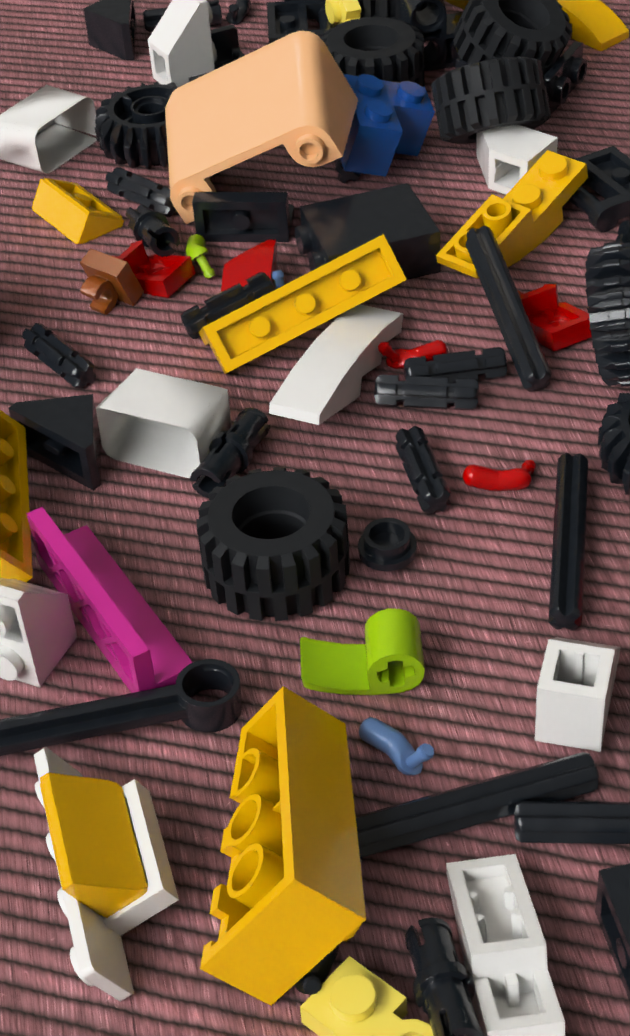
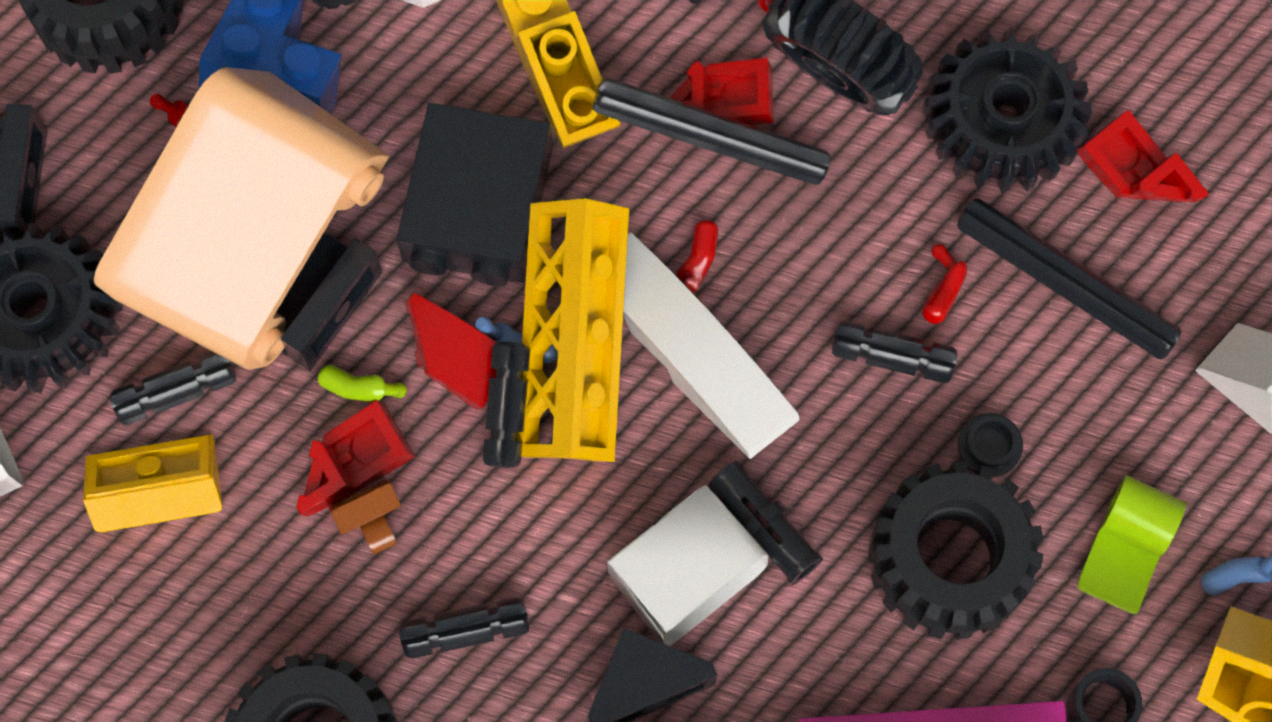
camera: 65 degrees left, 30 degrees up
(153, 230) = (283, 417): black axle -> none
(426, 392) = (774, 281): black axle -> none
(464, 364) = (752, 232): black axle -> none

